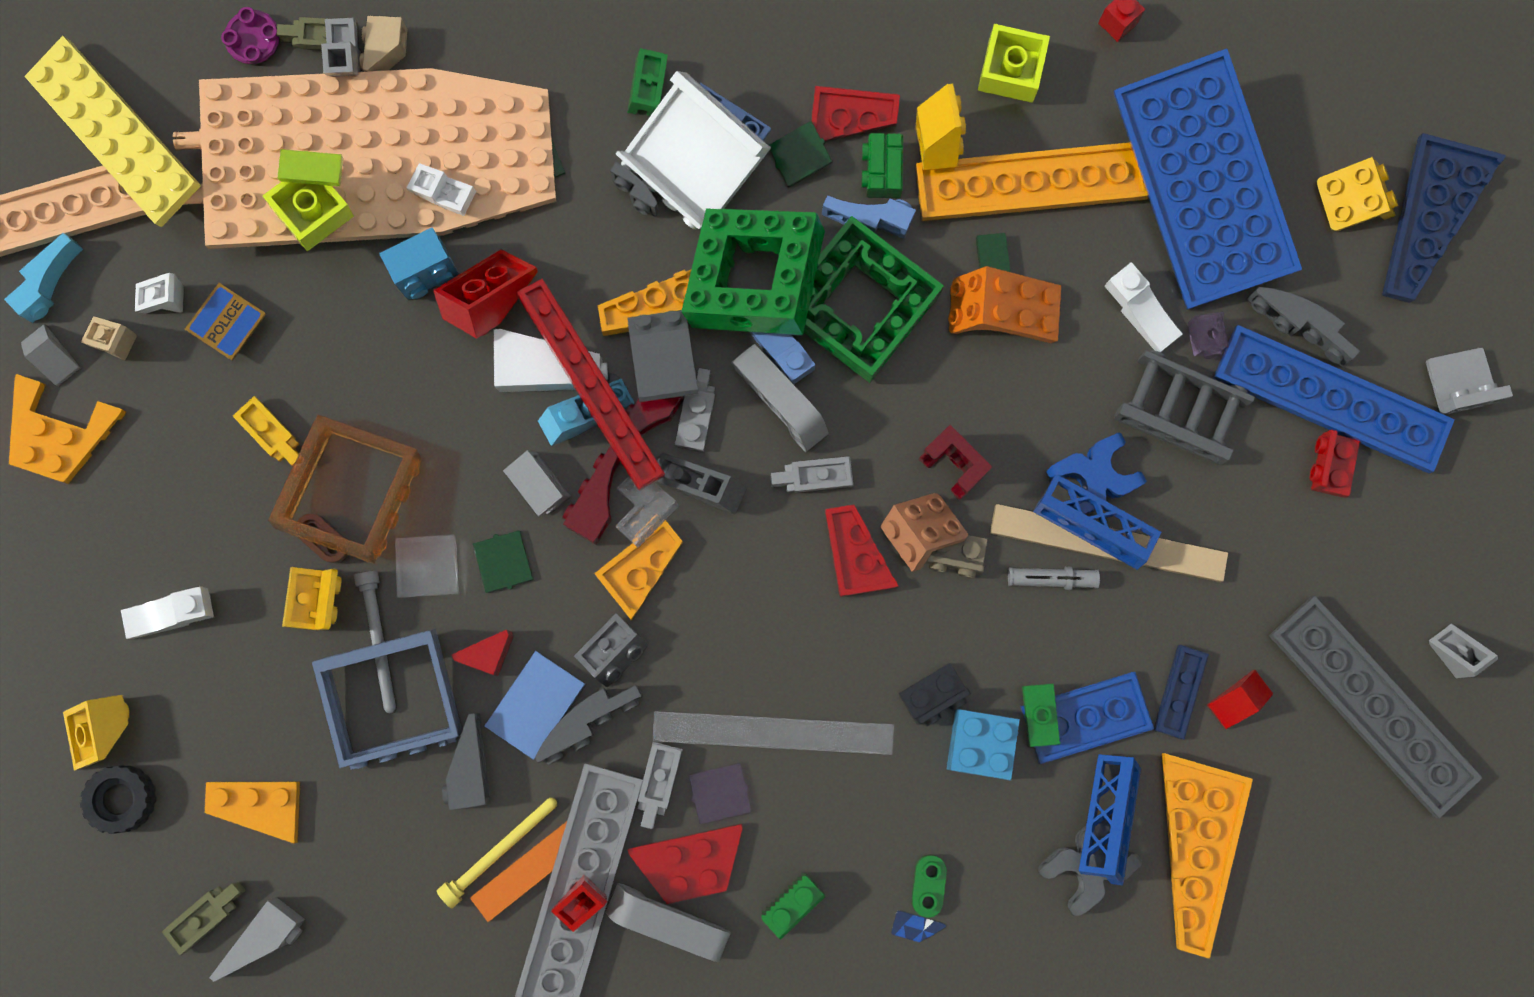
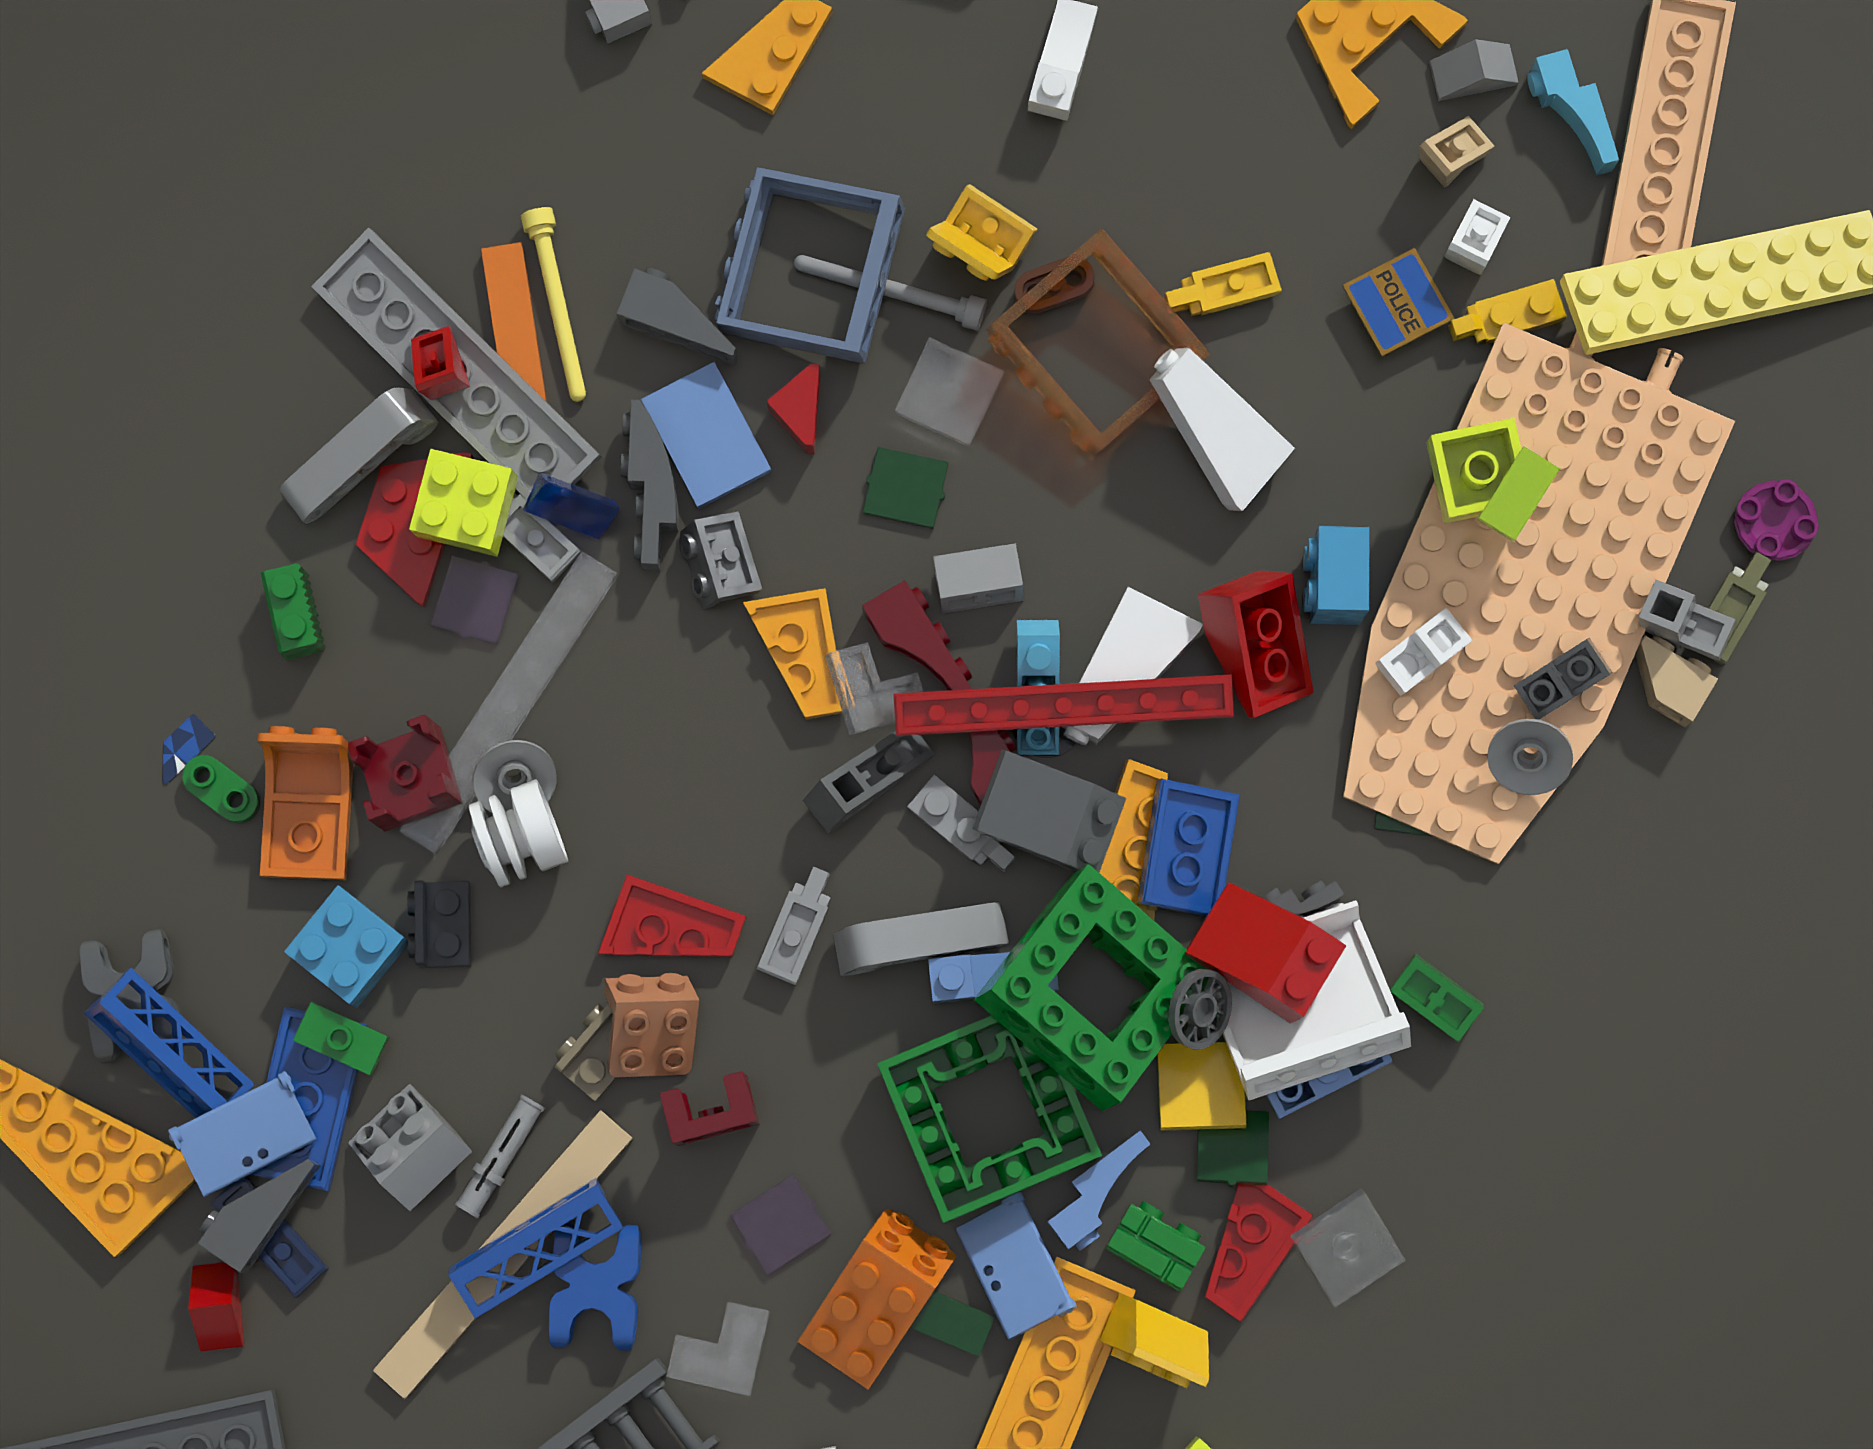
camera: 120 degrees right, 0 degrees up
(192, 248) = (1522, 308): none -> yellow hinge
(363, 383) = (1220, 428): none -> white slope
(415, 101) = (1563, 679): none -> dark grey slope
(473, 94) = (1526, 771): none -> light grey dish
(627, 763) = (570, 506): none -> clear blue slope
(637, 270) = (1187, 847): none -> blue tile
(663, 832) = (463, 502): none -> neon yellow brick
(676, 182) = (1265, 951): none -> red slope
(732, 202) = (1200, 1008): none -> dark grey wheel
(776, 186) = (1199, 1088): none -> yellow tile
(822, 58) = (1347, 1247): none -> clear plate
(824, 691) = (491, 769): none -> light grey dish
(854, 676) = (517, 833): none -> white wheel
(856, 769) = (406, 775): none -> dark red panel
(911, 822) = (306, 804): none -> orange bracket
(936, 242) = (1022, 1276): none -> medium blue door
(995, 390) = (780, 1224): none -> clear purple piece
(1080, 635) = (409, 1147): none -> light grey slope
(1095, 374) = (724, 1364): none -> clear plate
(1134, 742) = (241, 1133): none -> medium blue door
(1183, 705) = (249, 1222): none -> dark grey slope

